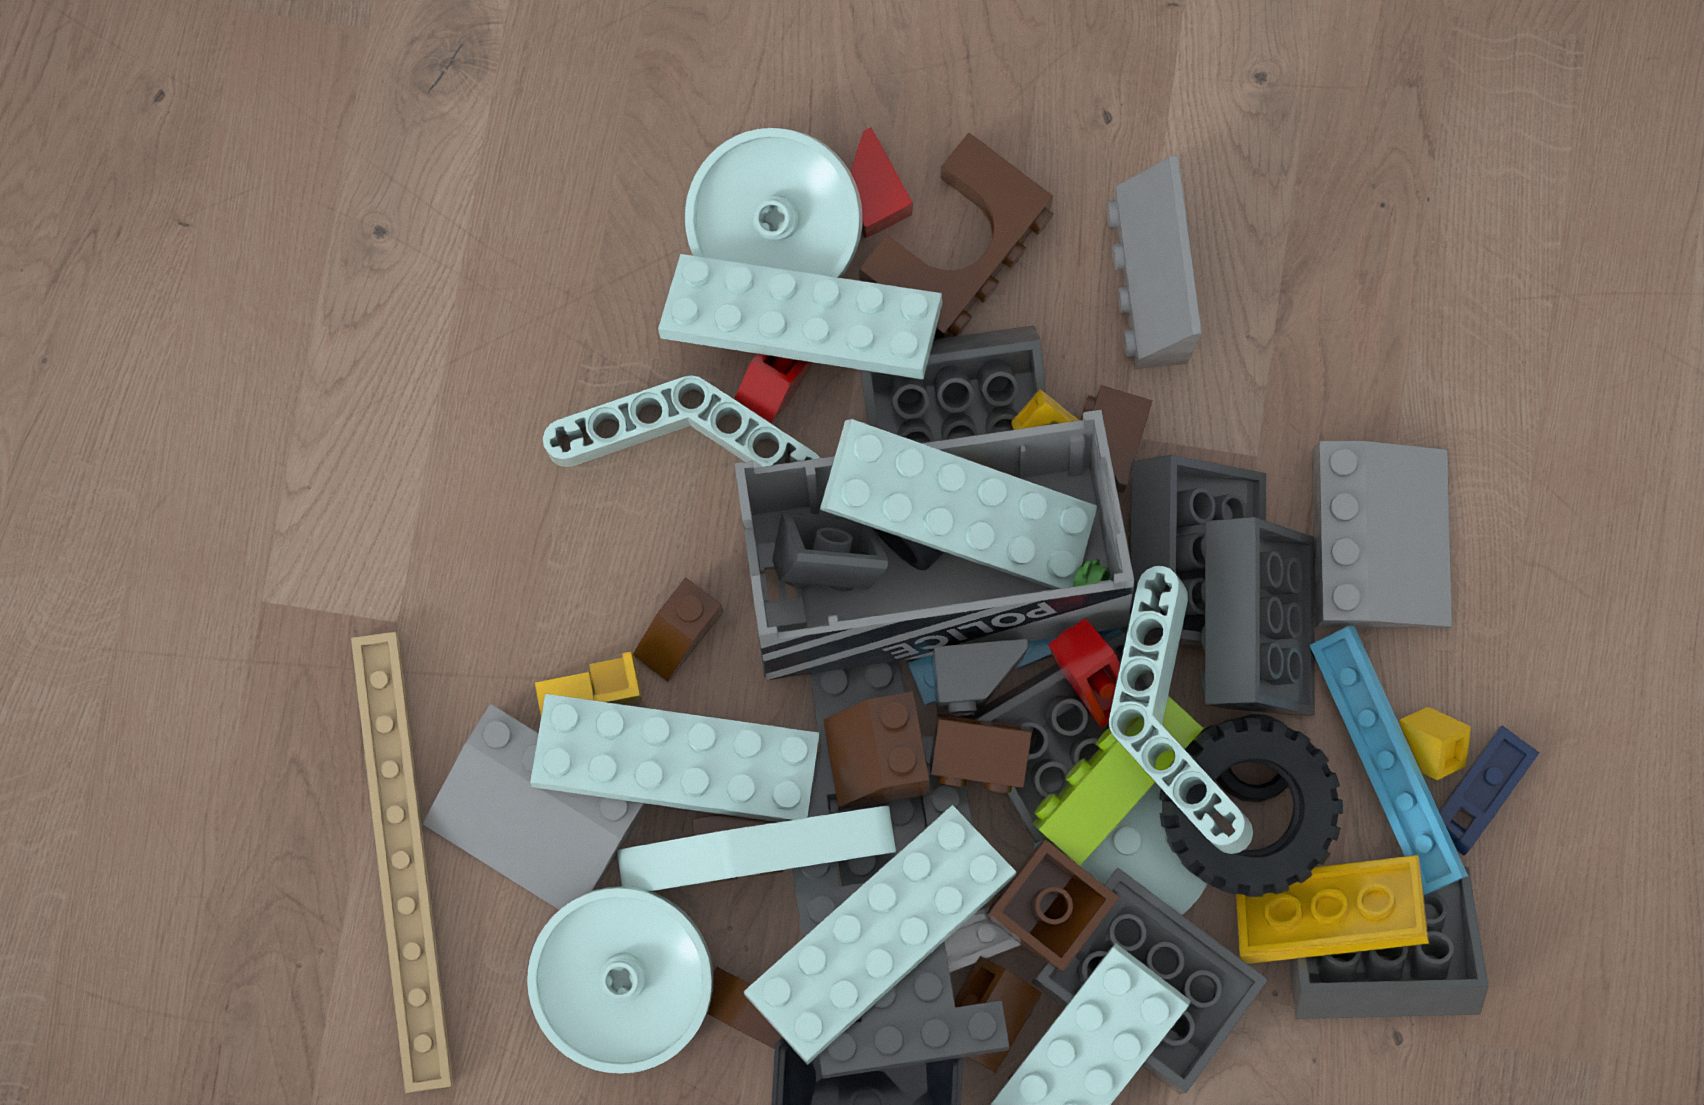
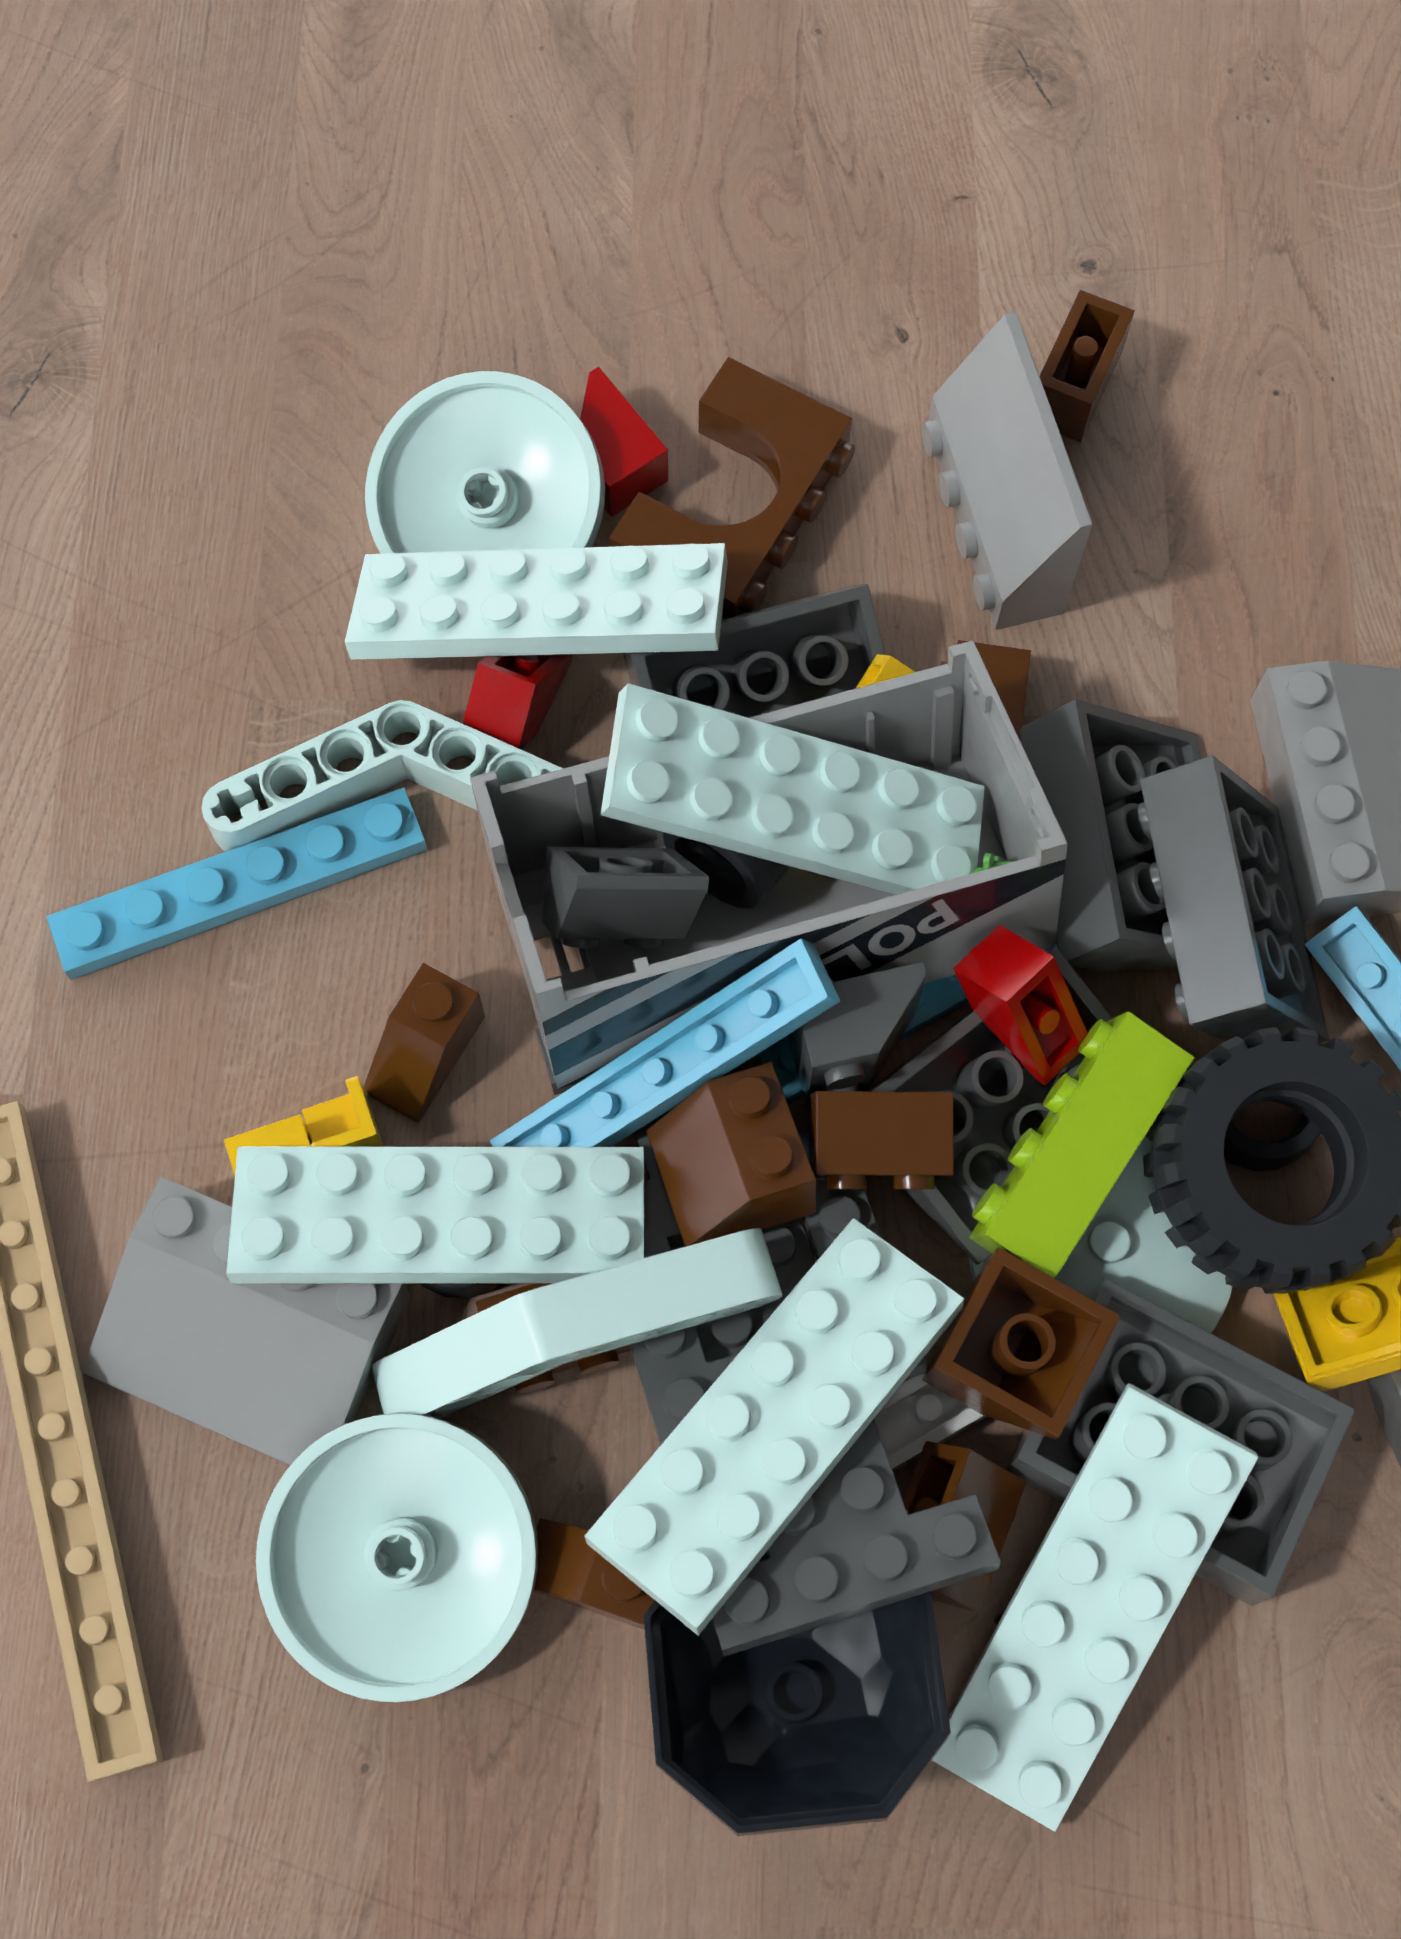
camera: 10 degrees left, 10 degrees down
(561, 489) = (236, 883): none -> medium azure plate
(849, 678) = (683, 1055): none -> medium azure plate
(1152, 703) = (1139, 1067): light aqua beam -> none
(1232, 173) = (1084, 361): none -> reddish brown brick

